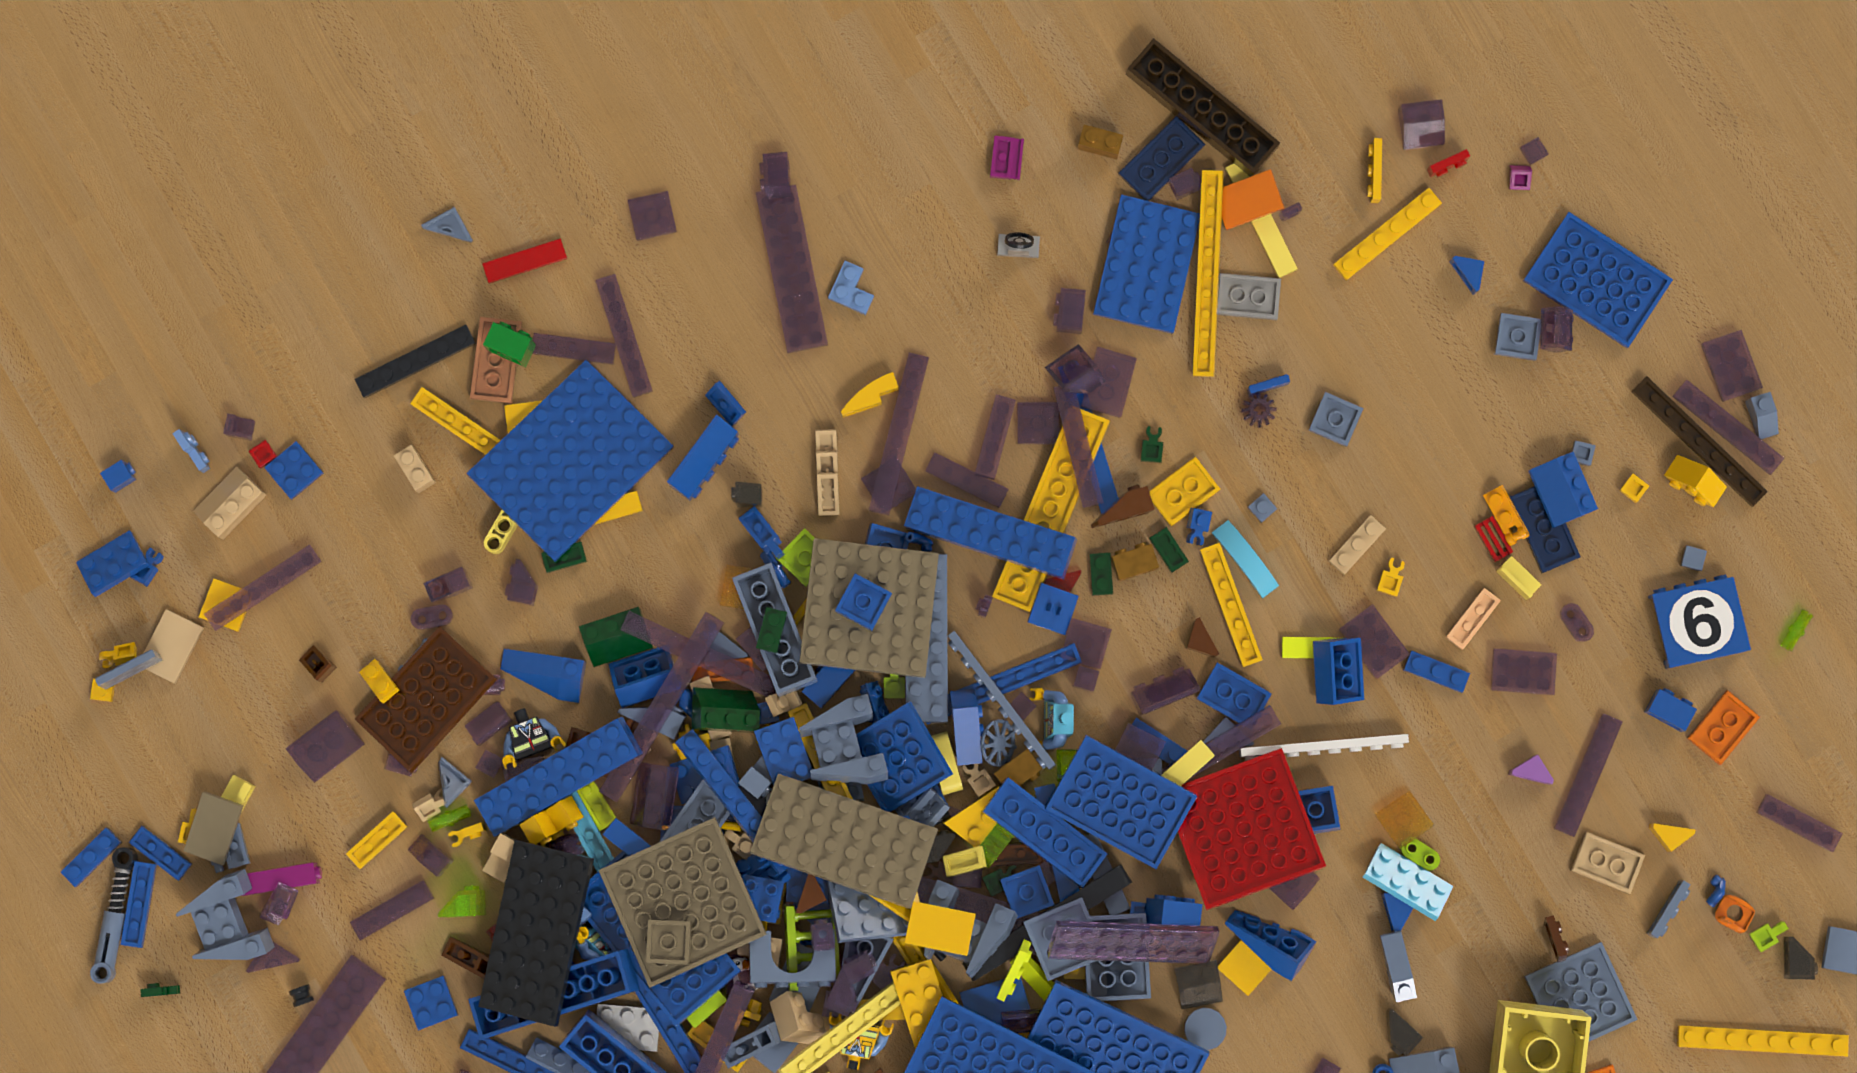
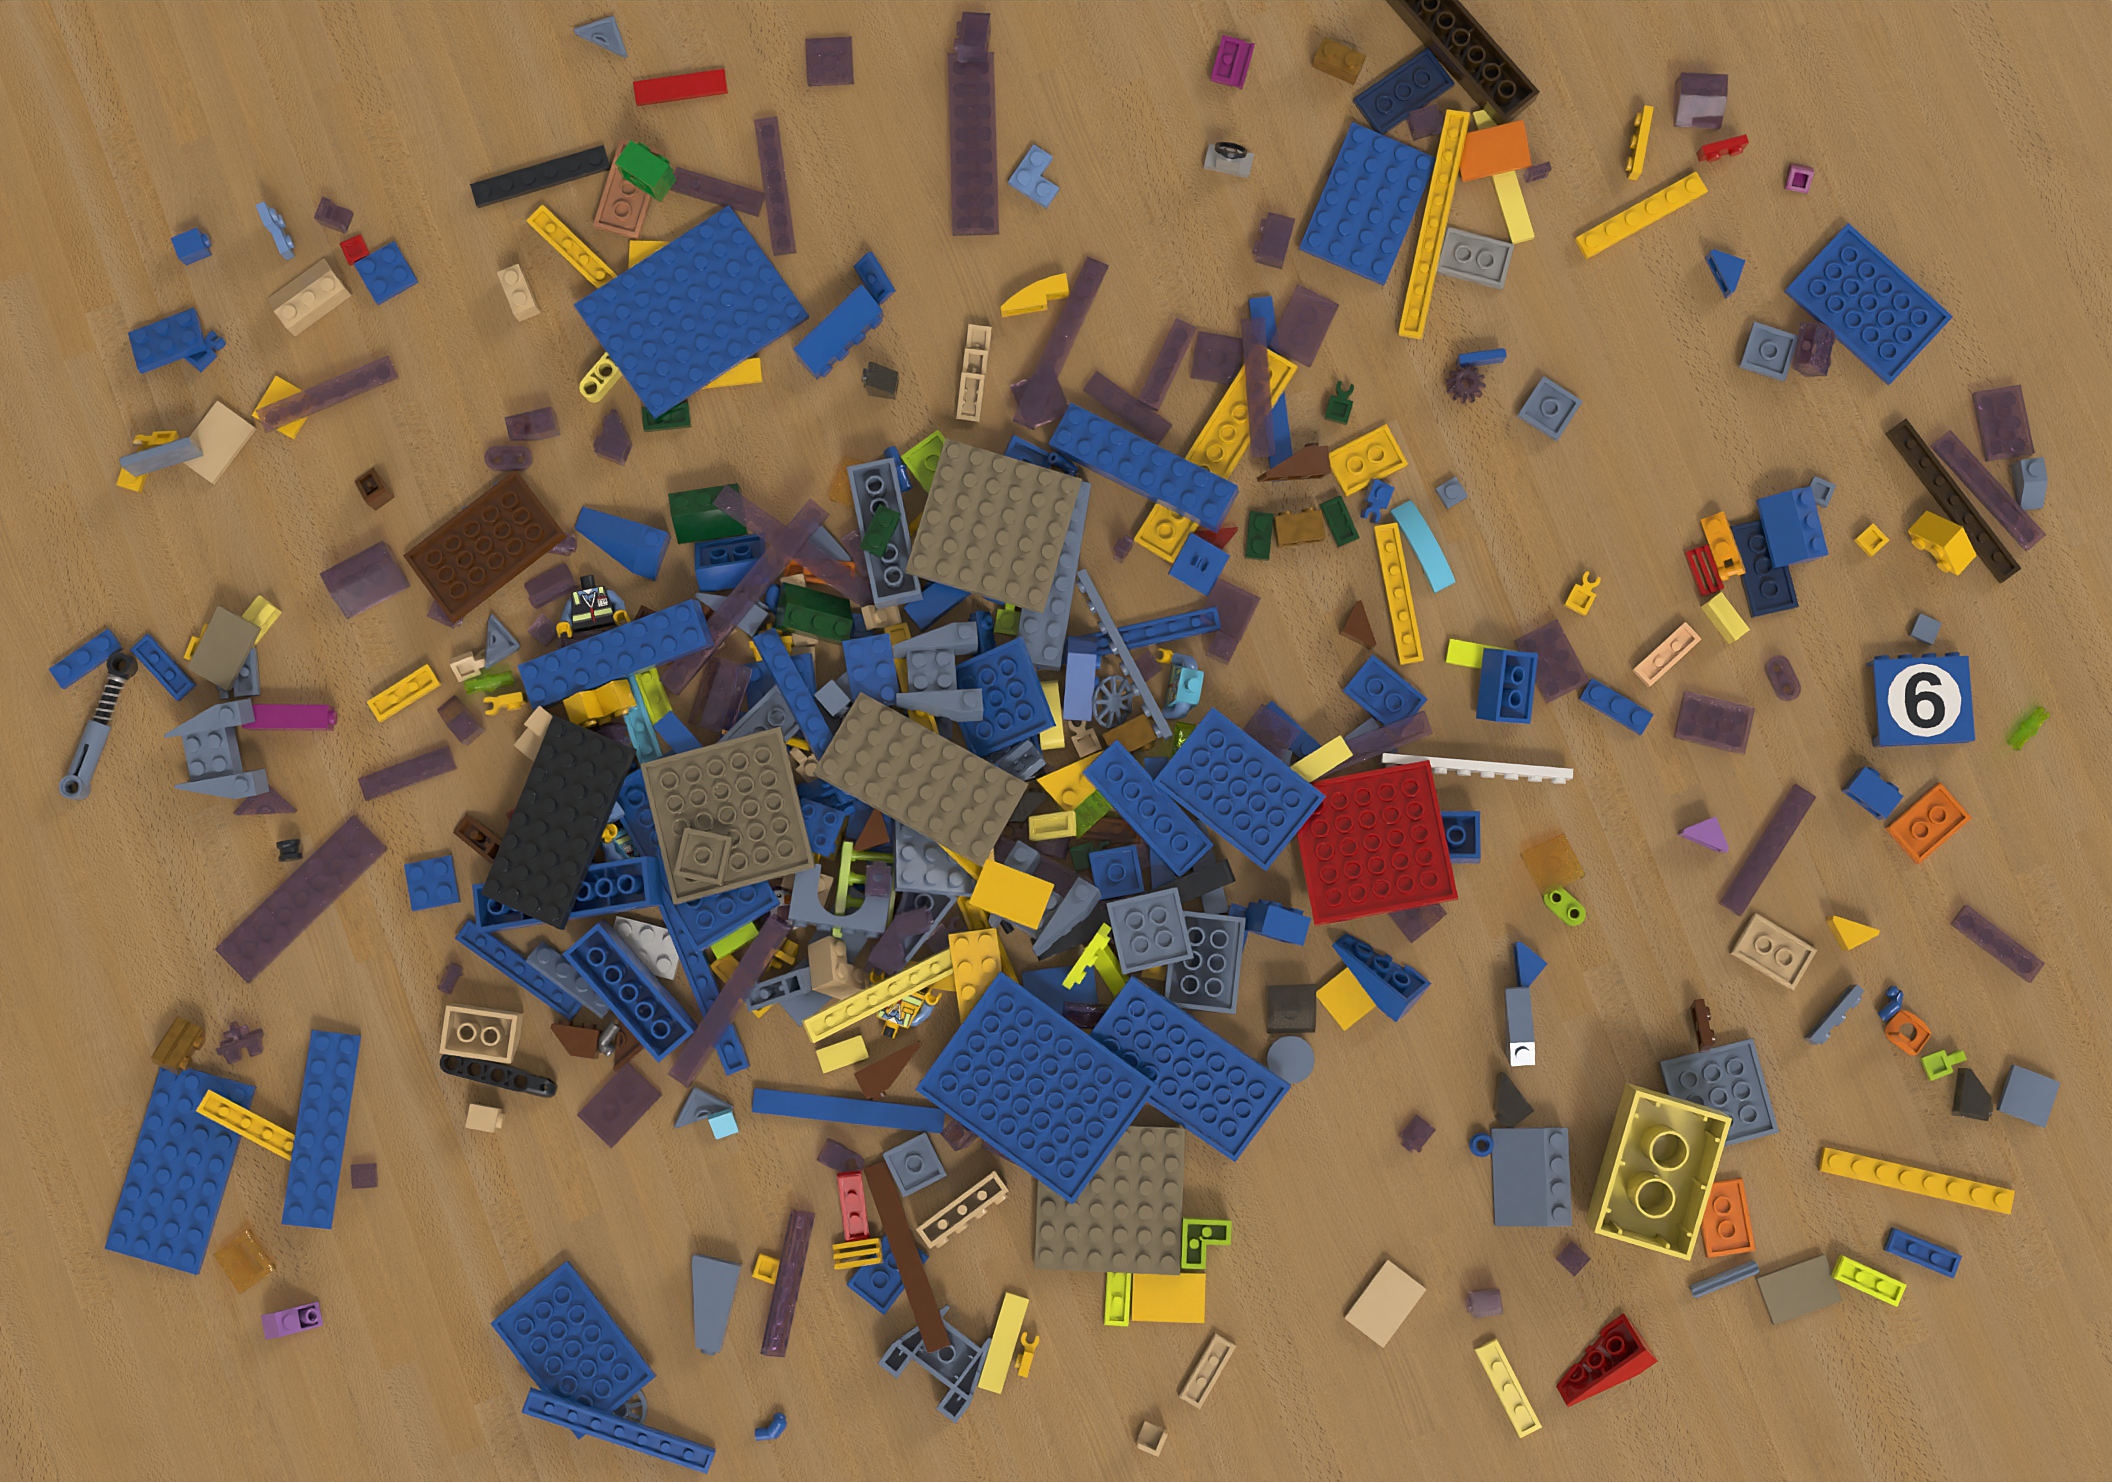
camera: 10 degrees right, 0 degrees up
(138, 904) = (128, 719): blue plate -> none
(155, 990) = (129, 817): dark green plate -> none
(279, 904) = (282, 744): slope -> none
(379, 681) = (437, 518): yellow plate -> none
(465, 903) = (488, 778): clear neon green slope -> none
(761, 532) = (890, 425): blue hinge -> none
(863, 602) = (988, 516): blue plate -> none
(1076, 372) = (1270, 305): slope -> none
(1132, 942) = (1225, 946): clear purple plate -> none
(1164, 691) = (1308, 676): slope -> none
(1357, 545) = (1550, 551): tan plate -> none
(1408, 881) = (1545, 934): plate -> none
(1534, 151) = (1819, 151): tile -> none

